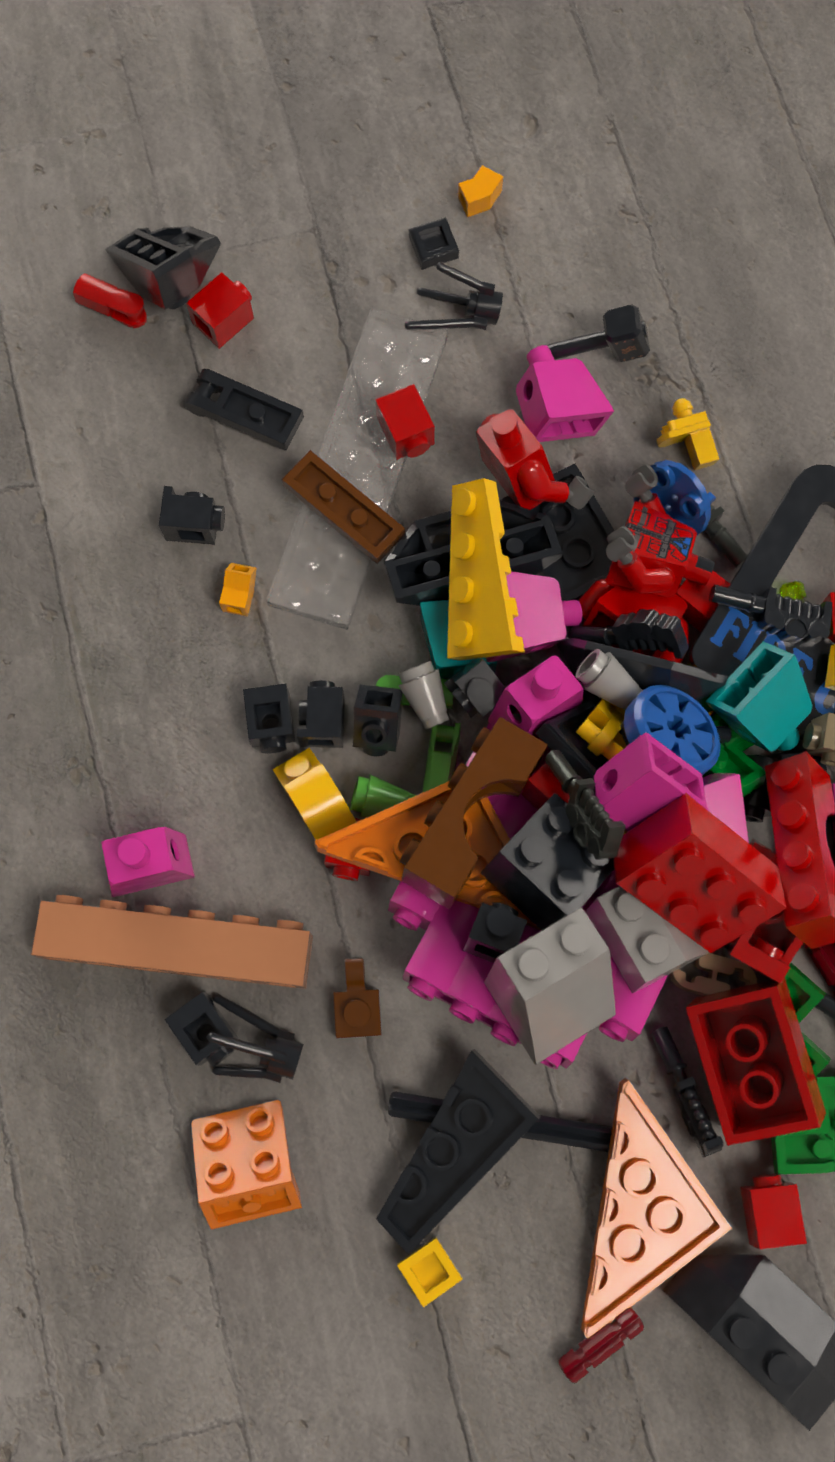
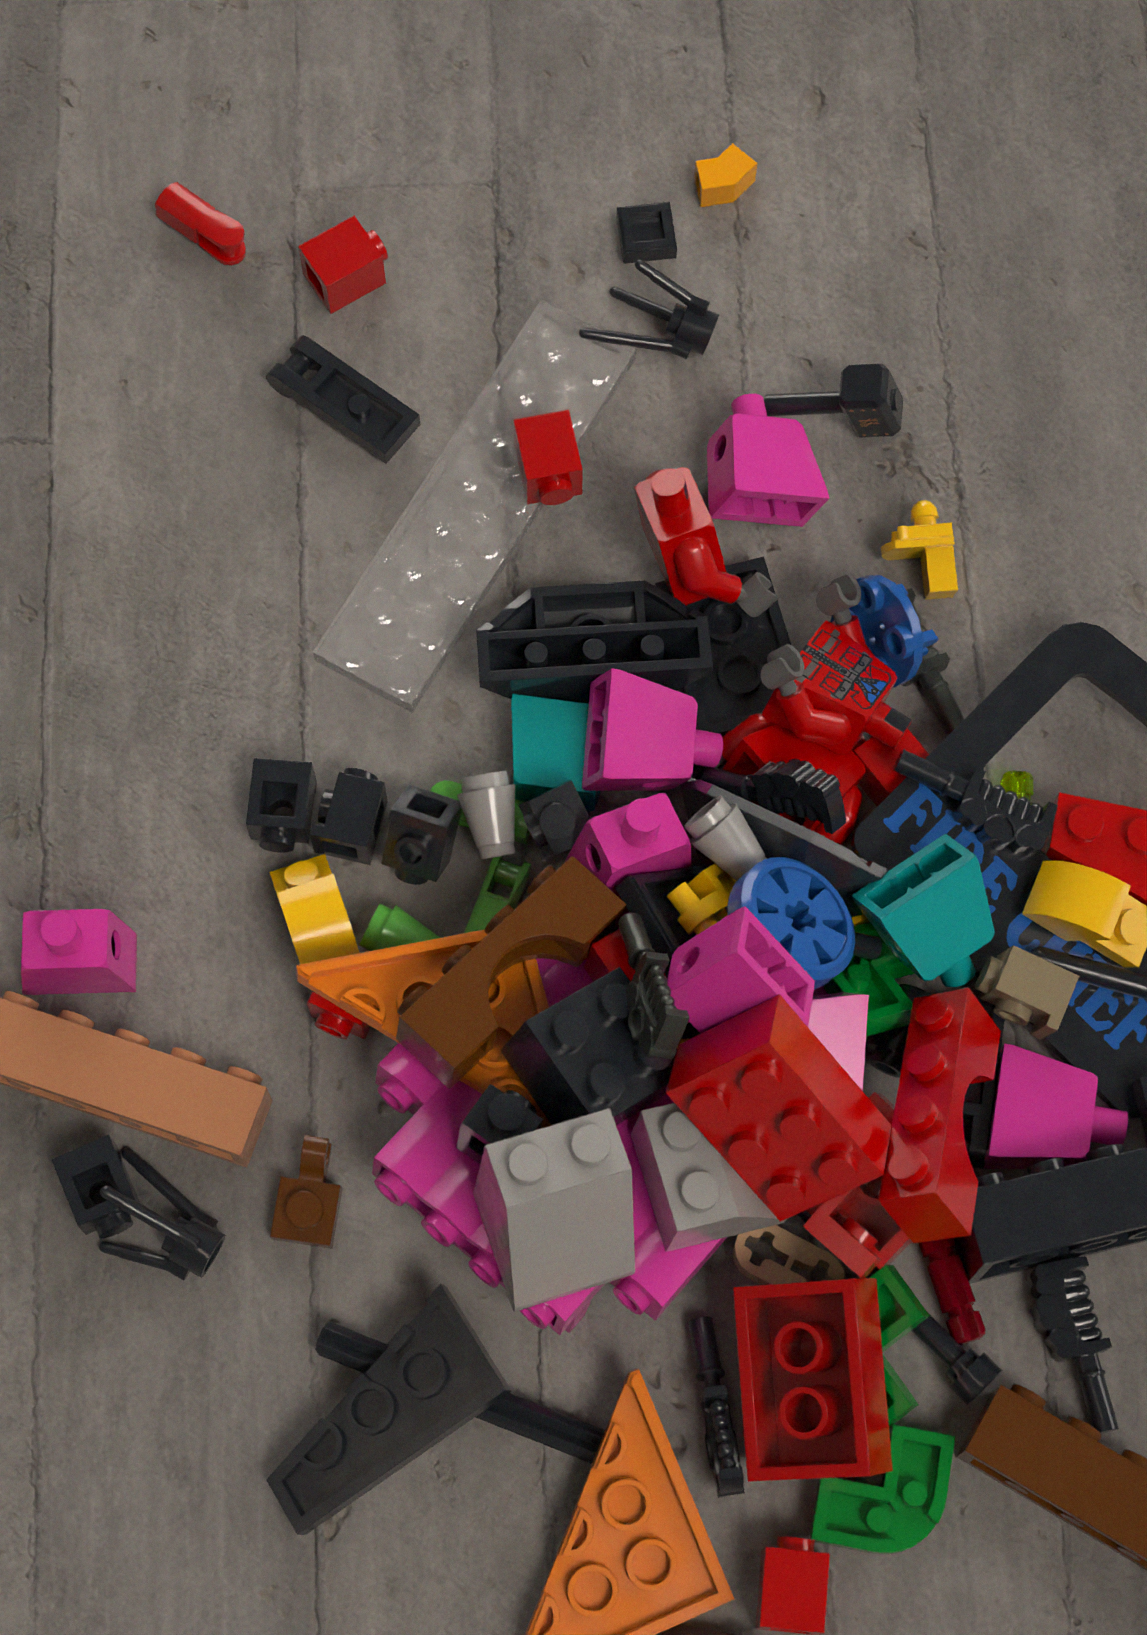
camera: 10 degrees right, 5 degrees down
(165, 262) = (284, 188): black wedge -> none
(190, 517) = (239, 524): black brick -> none
(238, 589) = (280, 630): light orange piece -> none
(243, 1165) = (110, 1375): orange bracket -> none
(343, 507) = (441, 550): reddish brown plate -> none
(429, 1271) = (320, 1564): yellow plate -> none
(478, 588) = (585, 692): yellow wing -> none

